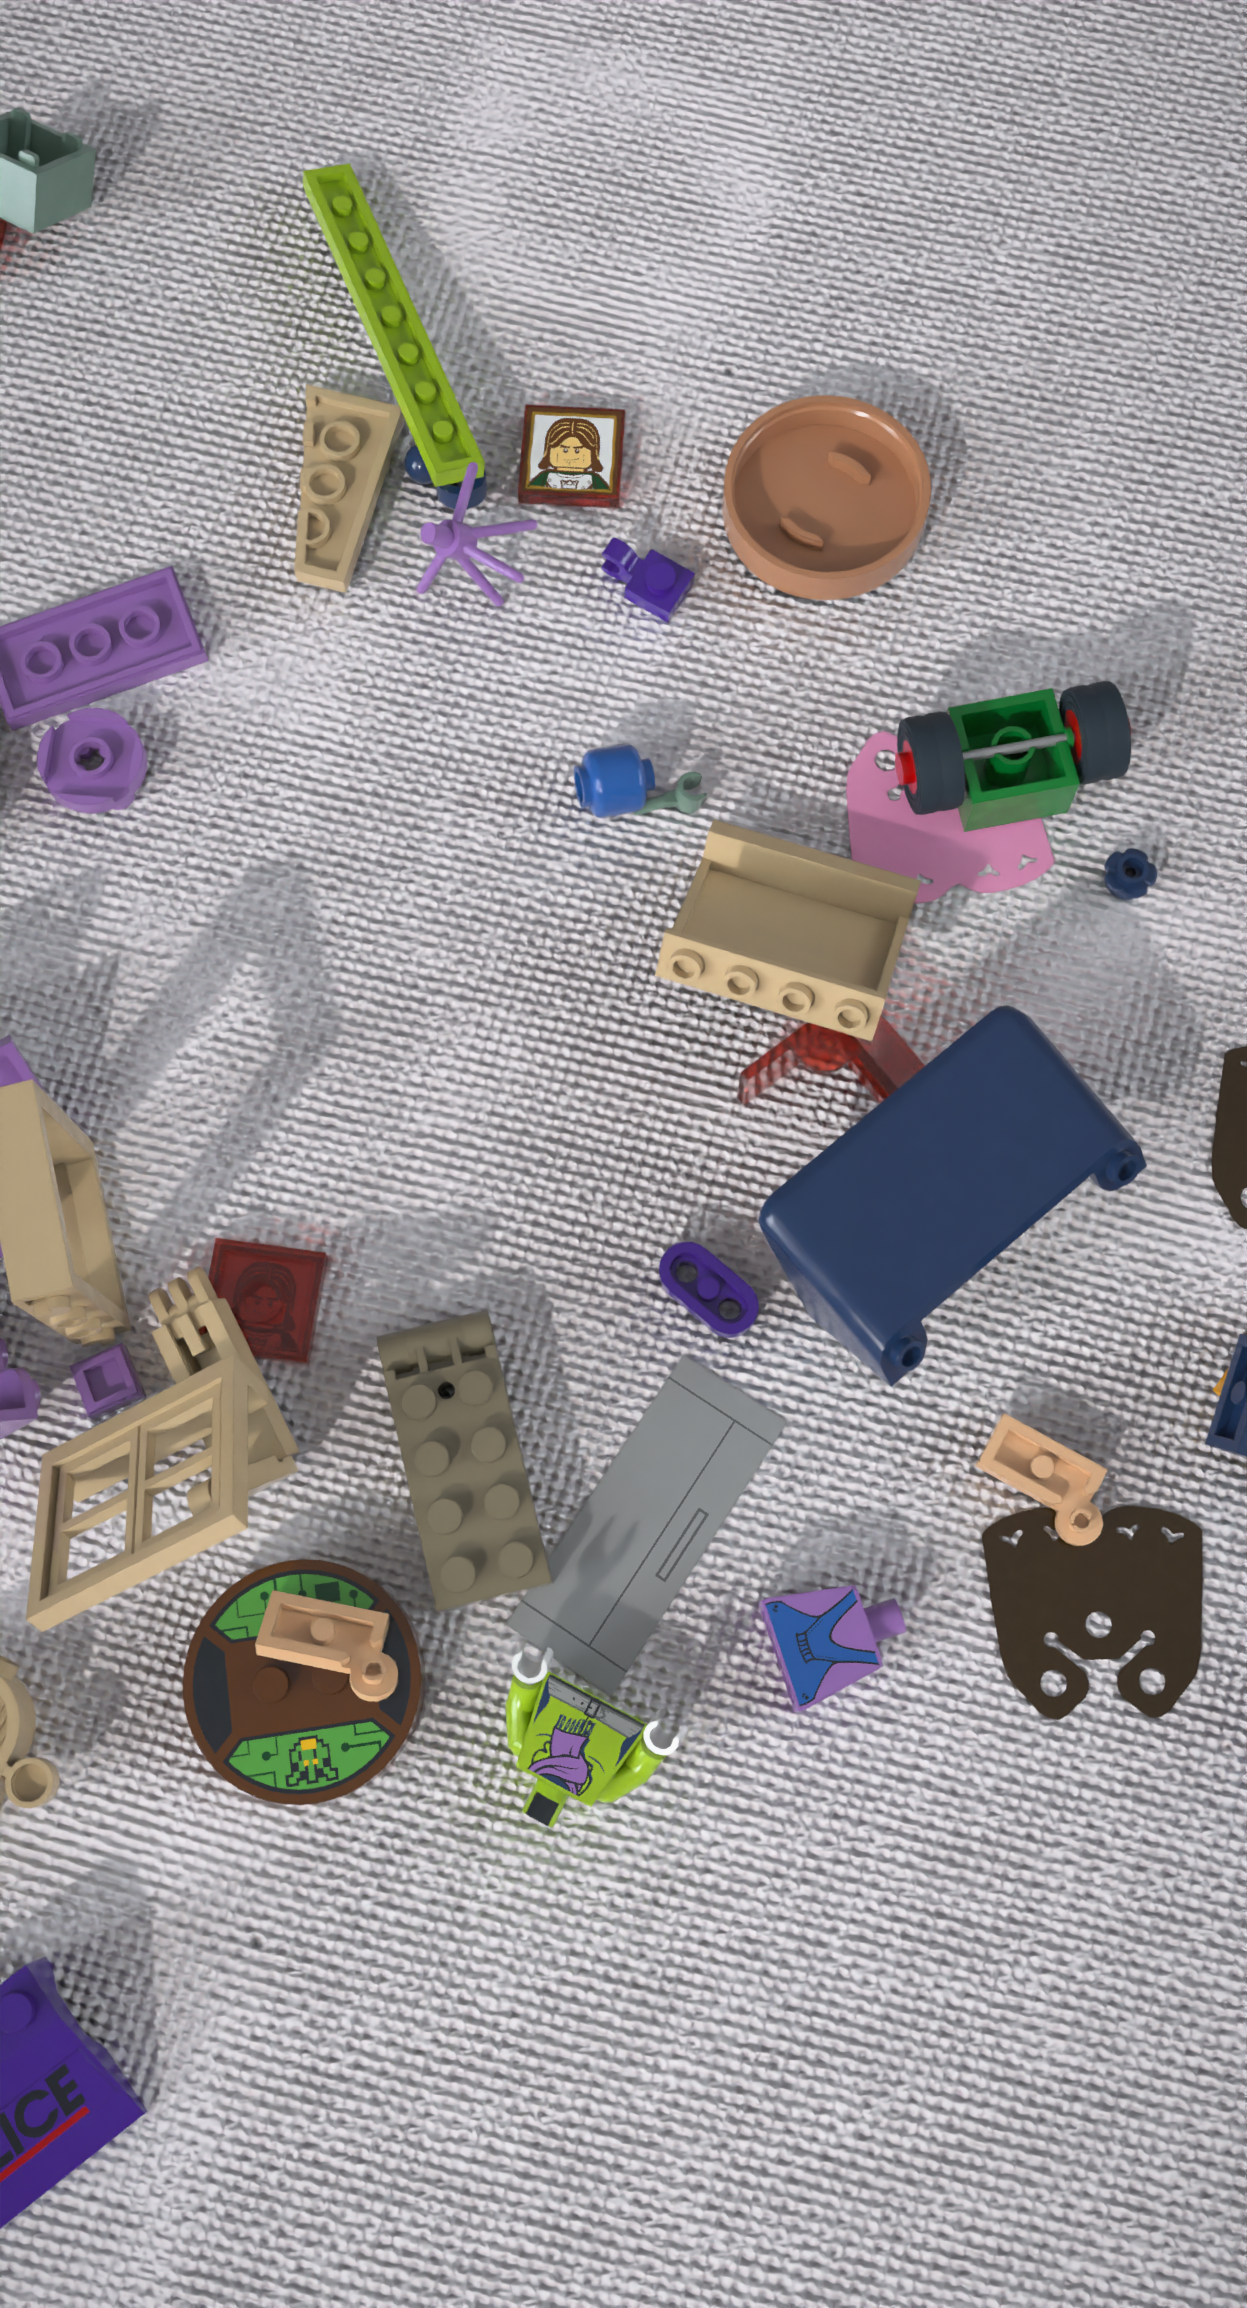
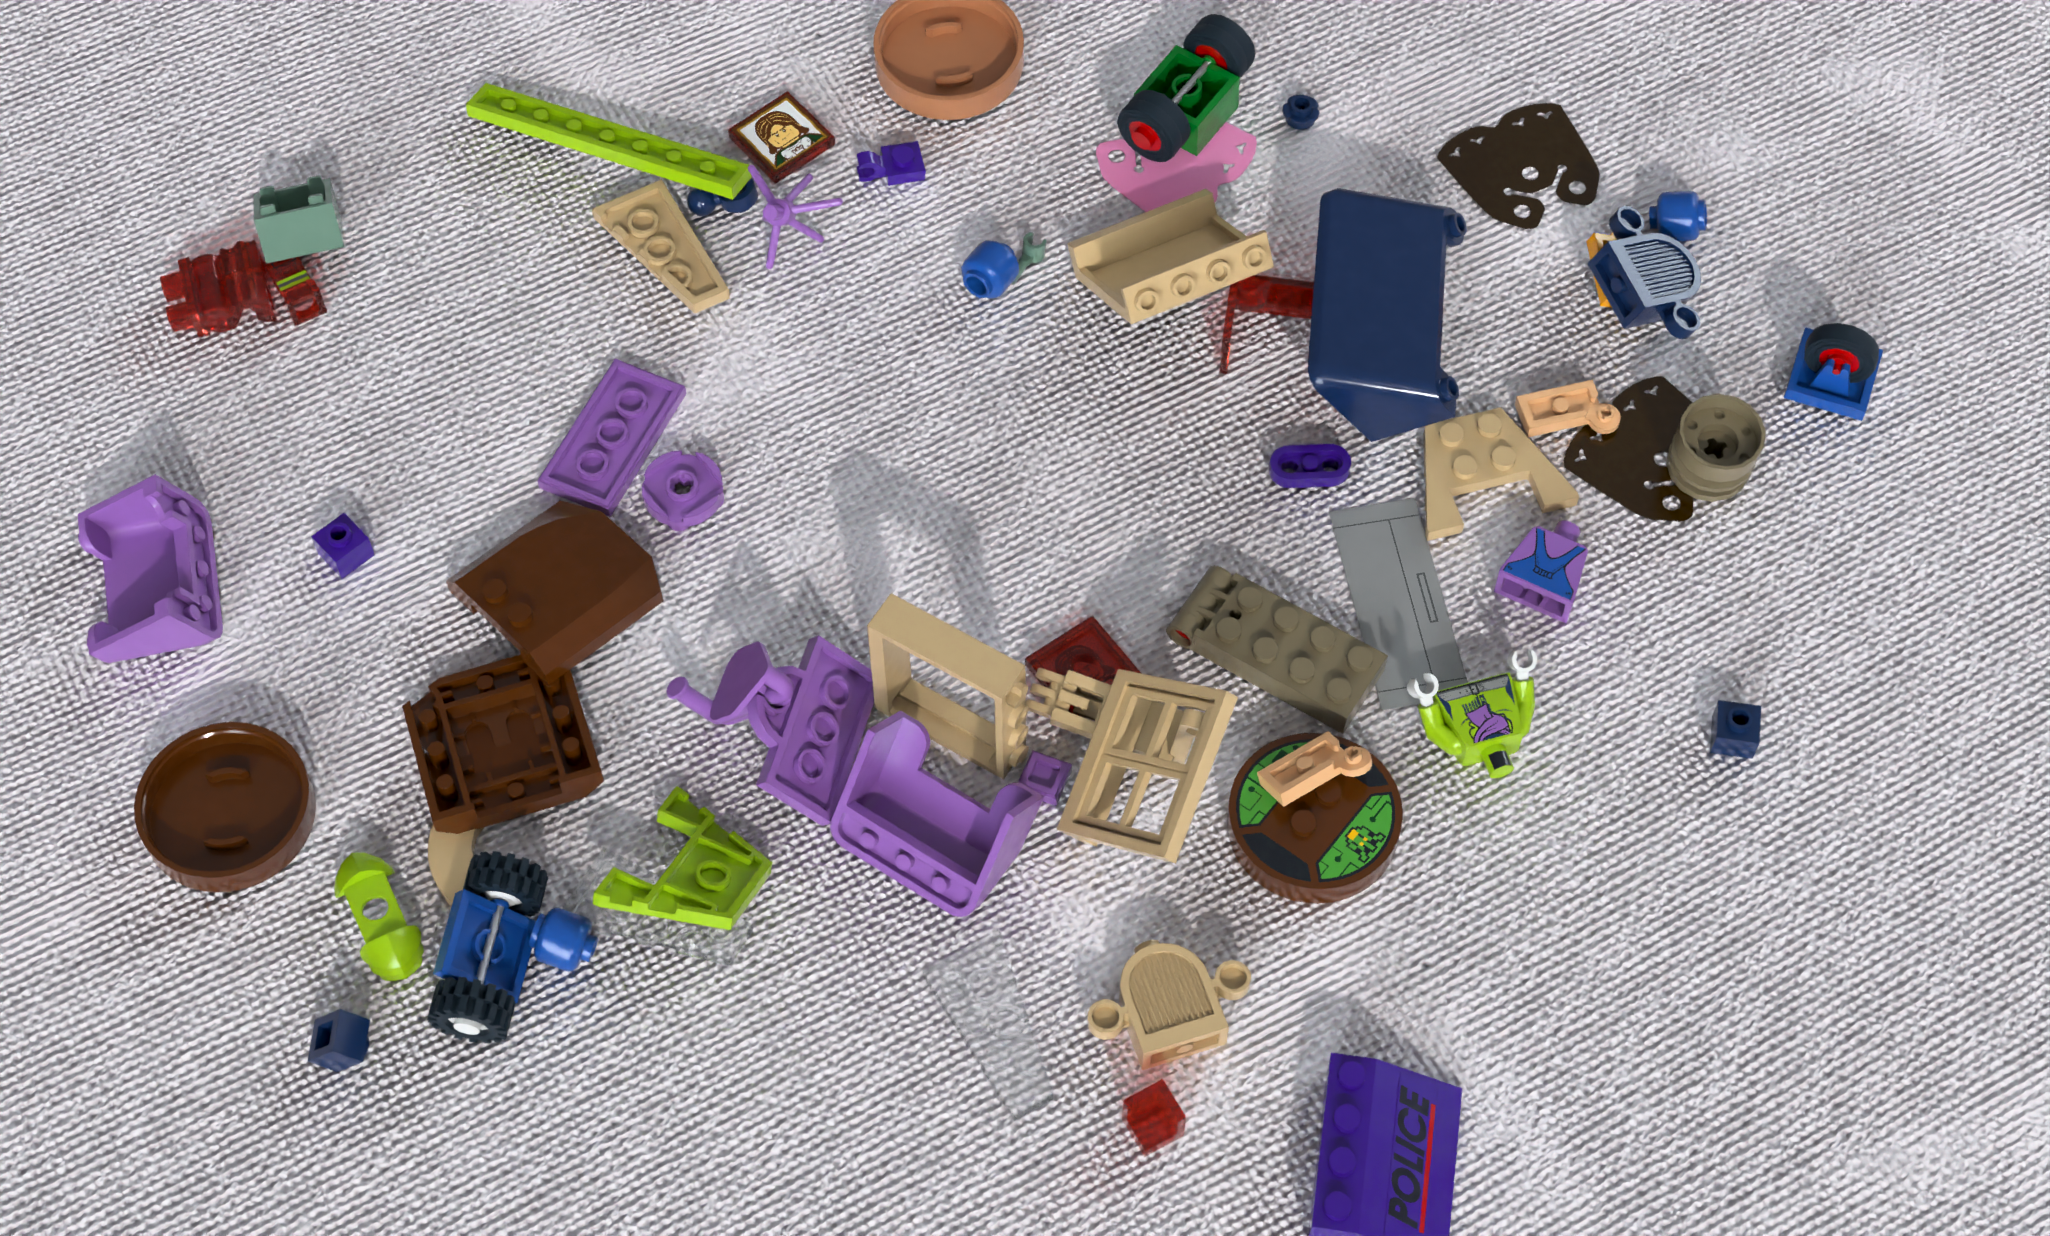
camera: 45 degrees left, 15 degrees down
(813, 2002) = (1735, 729): none -> dark blue plate
(902, 1438) = (1481, 454): none -> tan wing
(1186, 1687) = (1715, 447): none -> dark tan wheel

